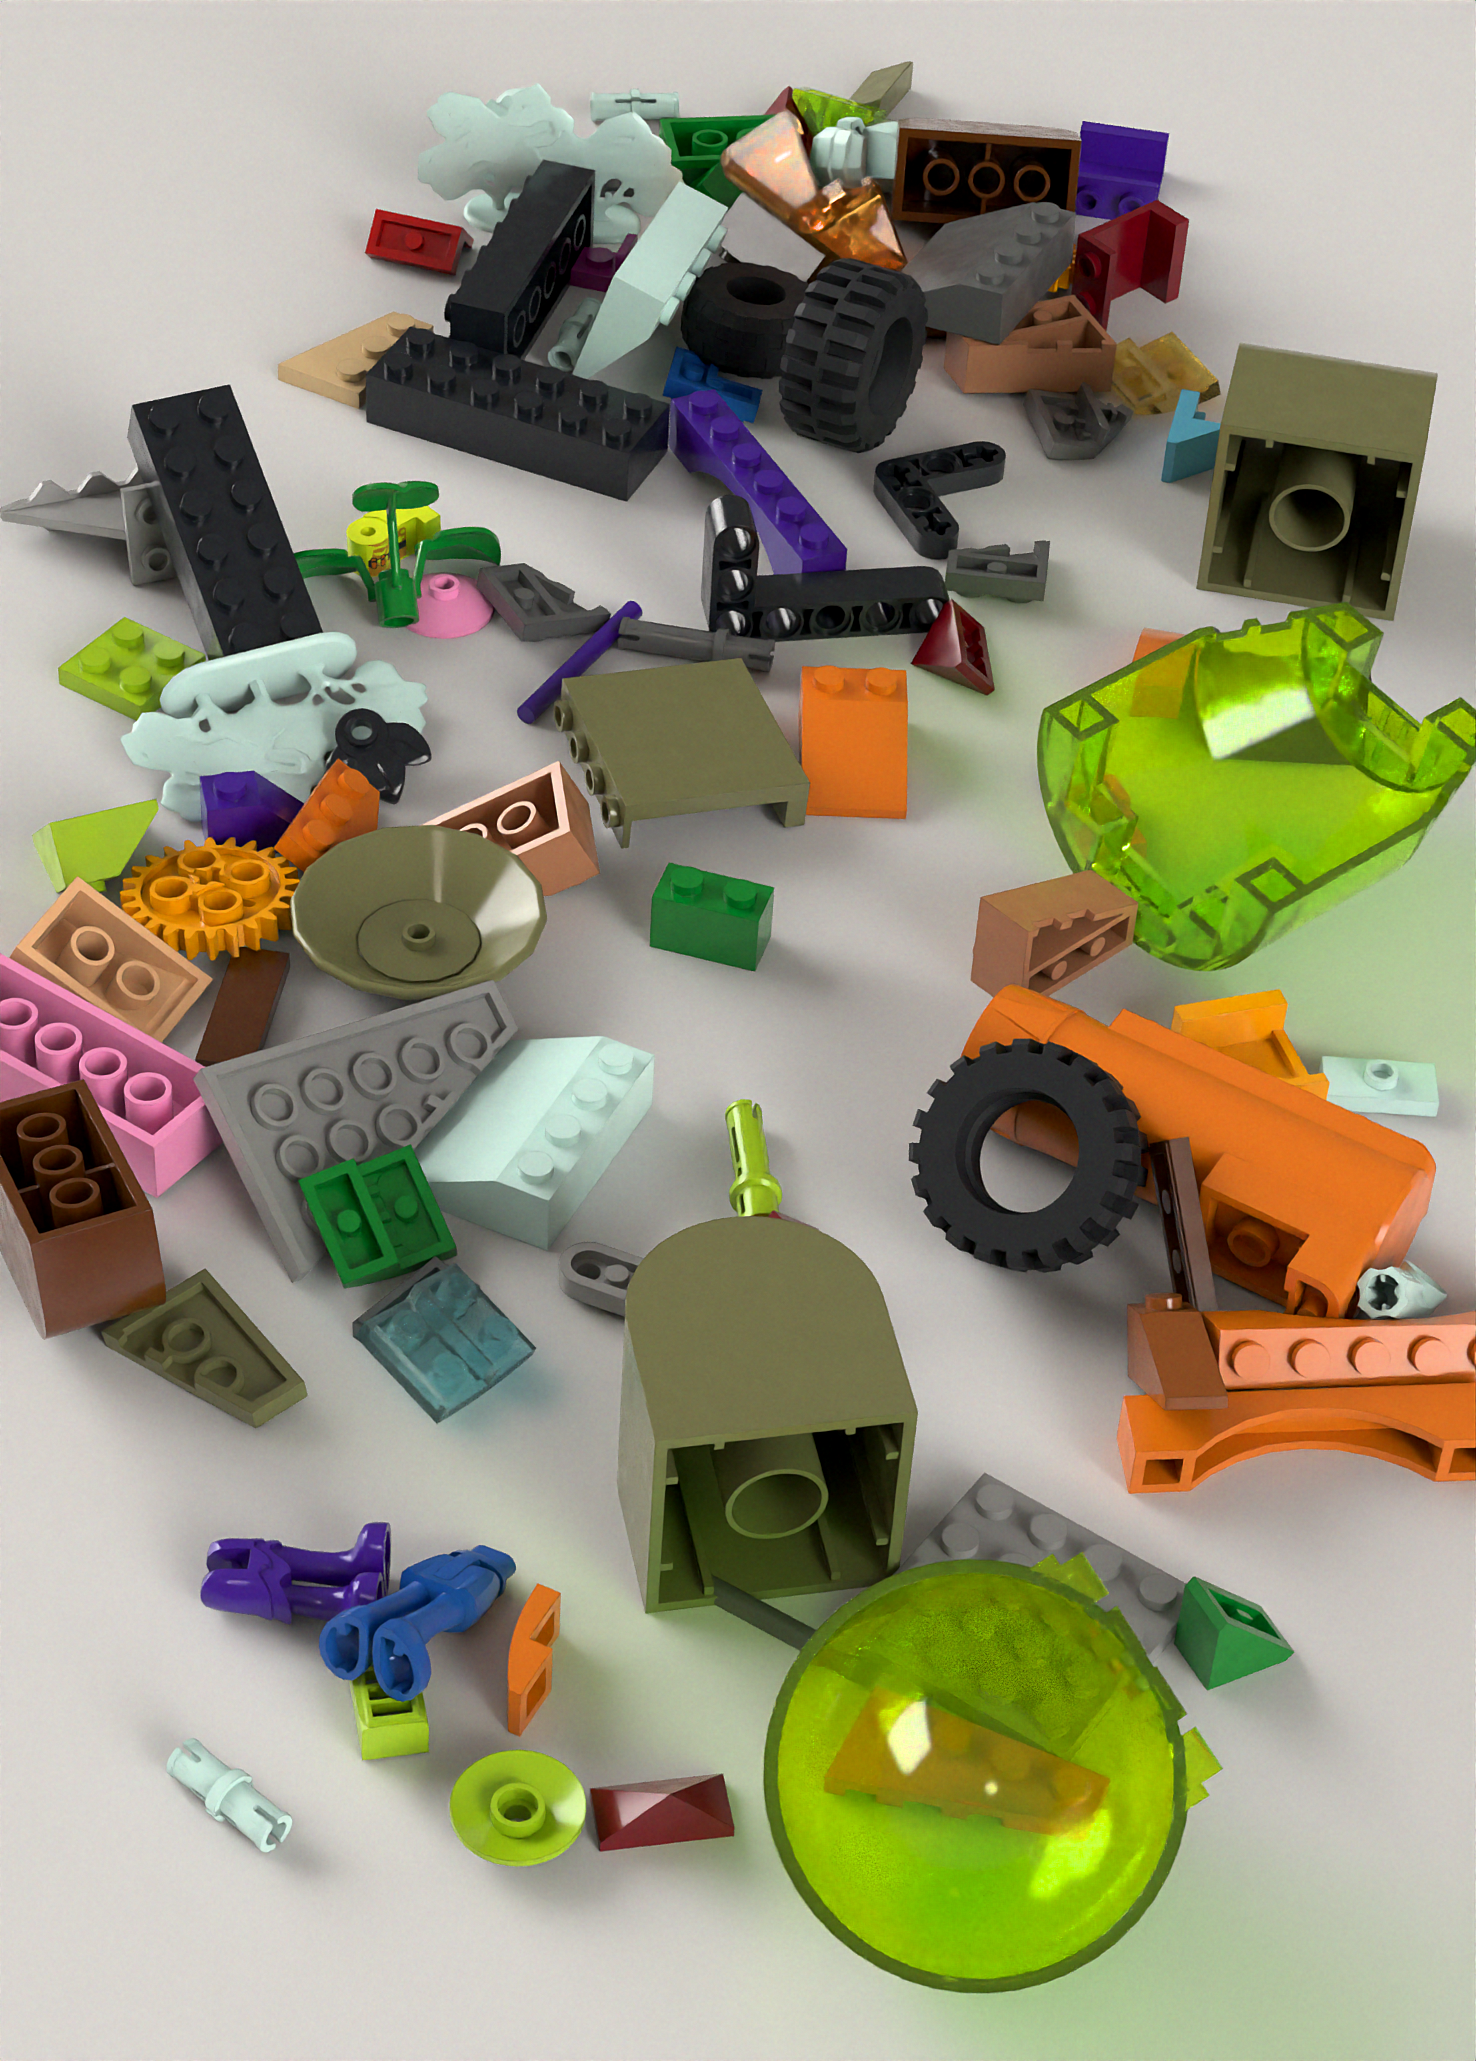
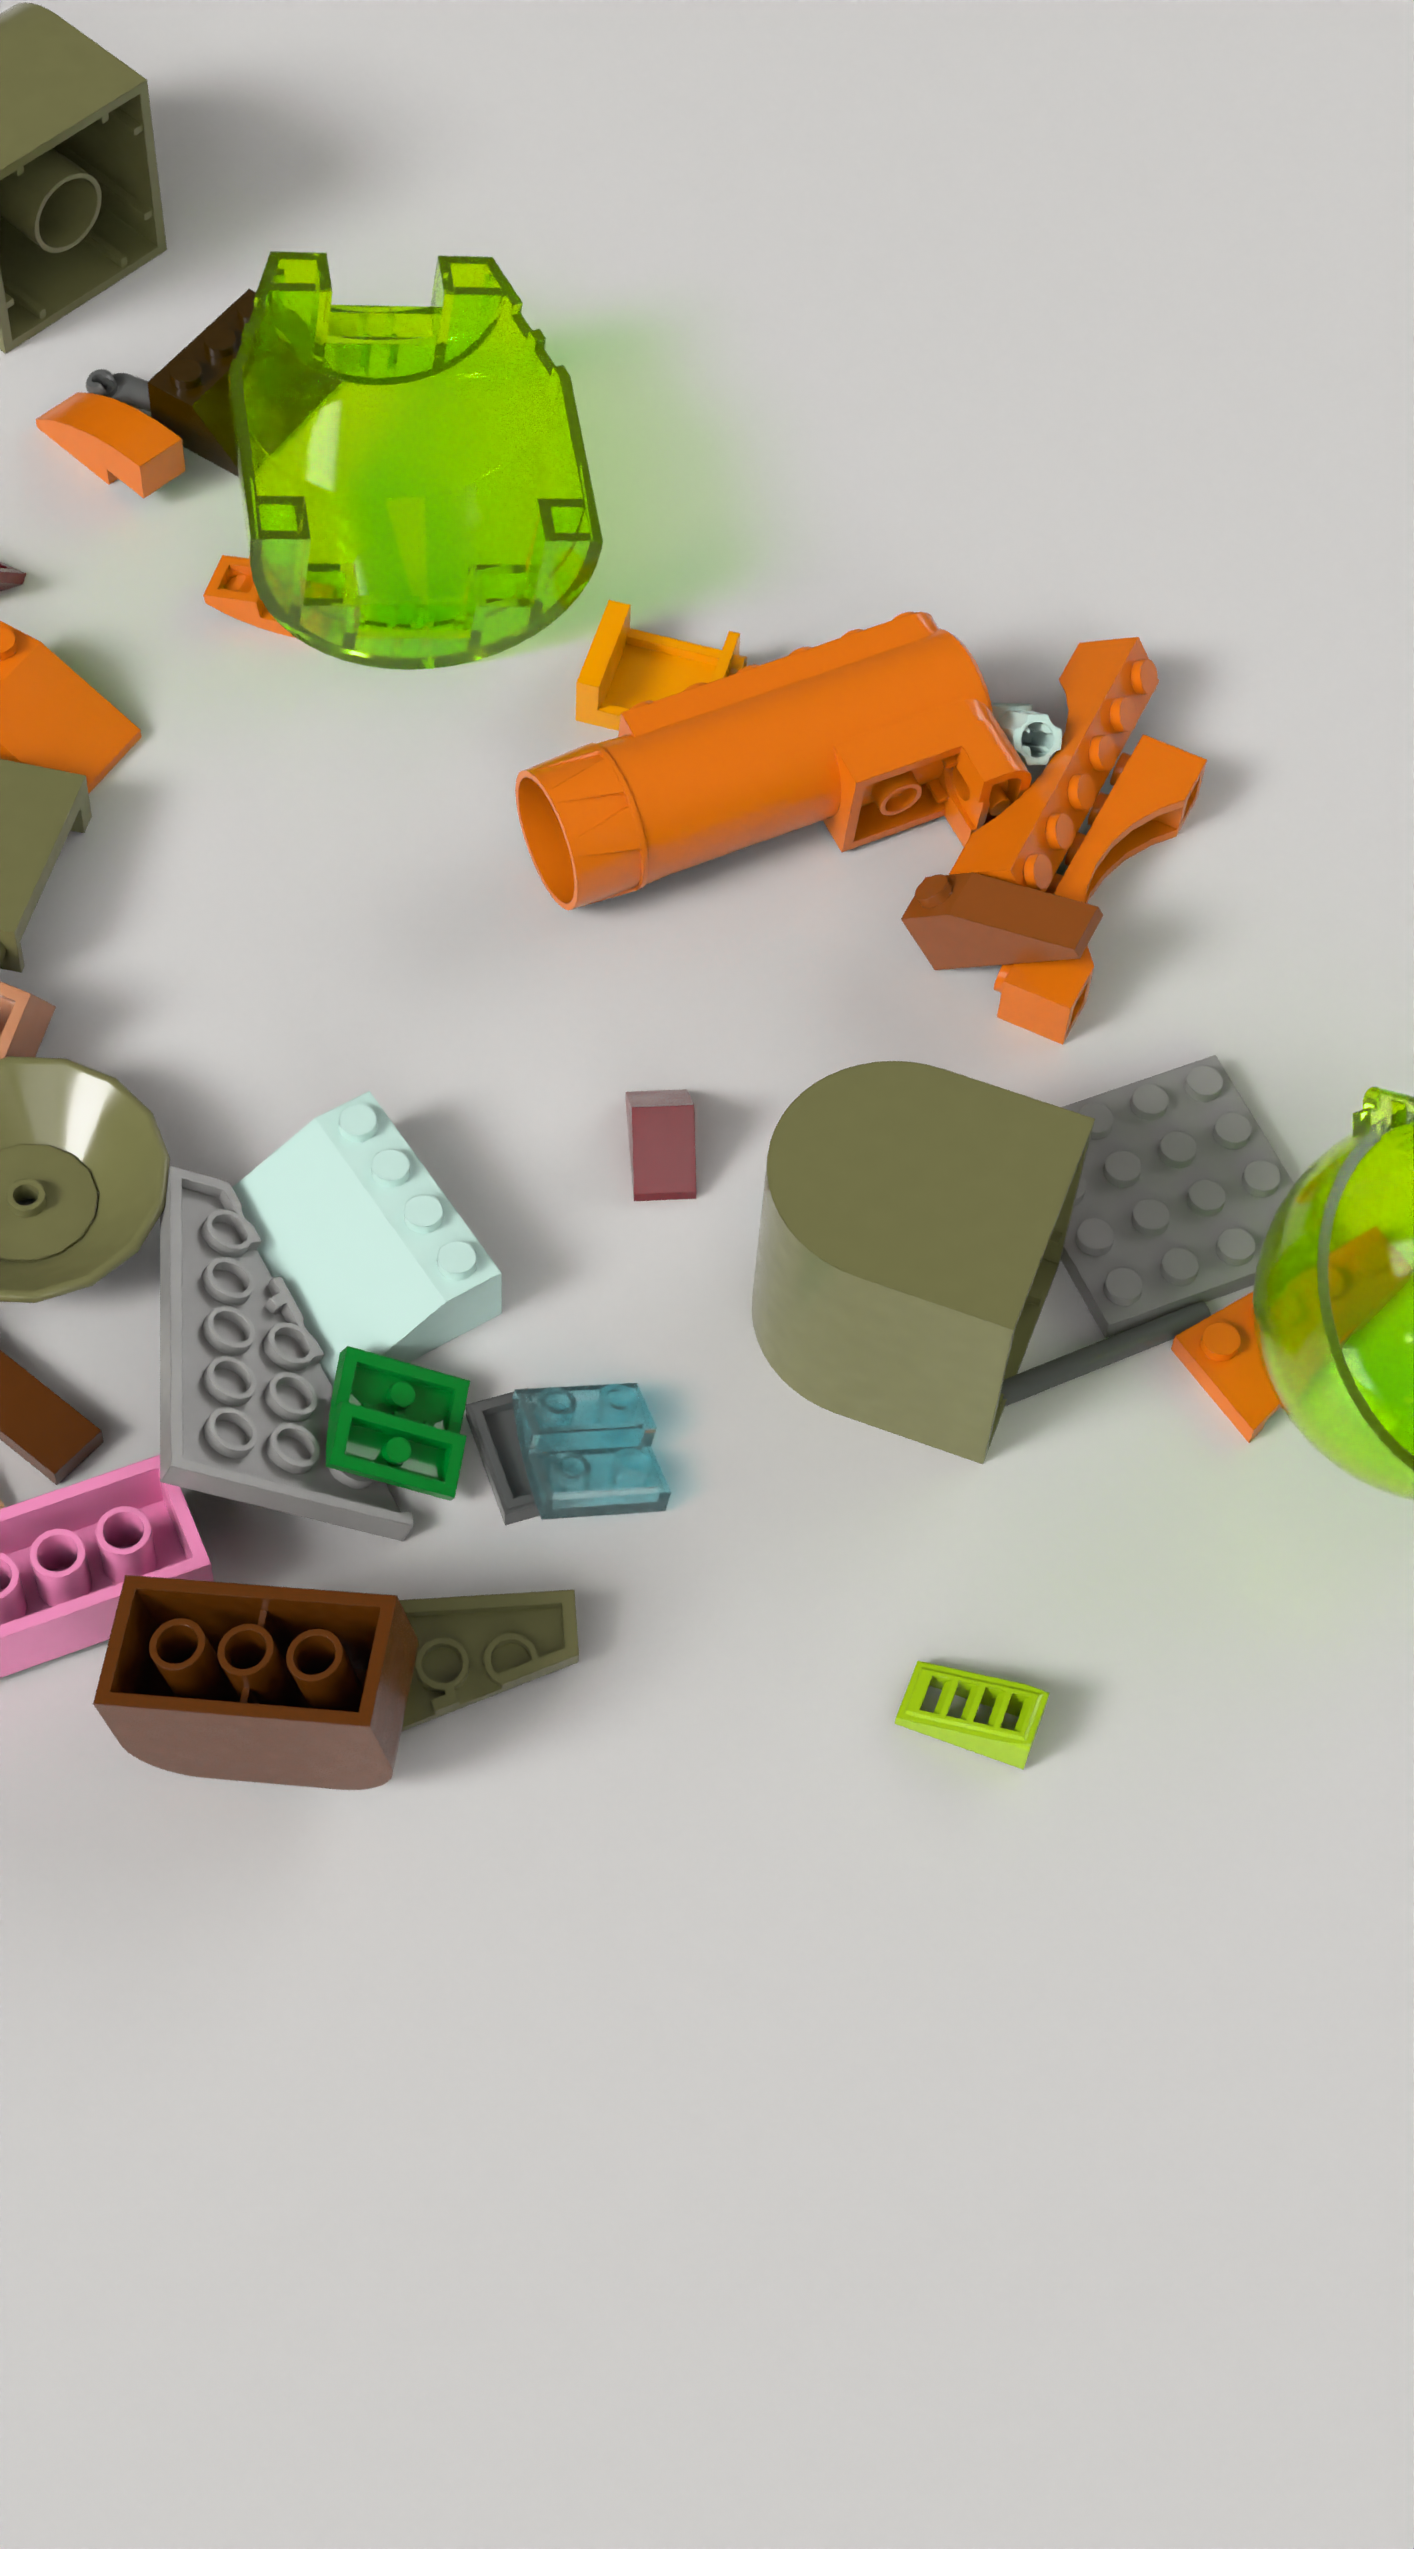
camera: 60 degrees left, 15 degrees up
(229, 1795) = (1016, 1895): light aqua pin -> none
(258, 1576) = (808, 1738): dark purple piece -> none
(393, 1632) = (900, 1603): blue piece -> none
(521, 1787) = (1174, 1645): lime dish -> none
(531, 1657) = (1018, 1588): orange slope -> none
(597, 1275) = (591, 1277): light grey plate -> none
(661, 1812) = (1212, 1567): dark red slope -> none
(711, 916) = (186, 951): green brick -> none
(754, 1188) = (558, 1112): lime pin -> none
(955, 1134) = (799, 892): black tyre -> none
(1050, 932) = (408, 721): nougat wedge -> none
(1182, 1223) = (861, 827): reddish brown tile -> none
(1225, 1635) = (1274, 1068): green slope -> none
(1382, 1085) = (735, 604): light aqua plate -> none

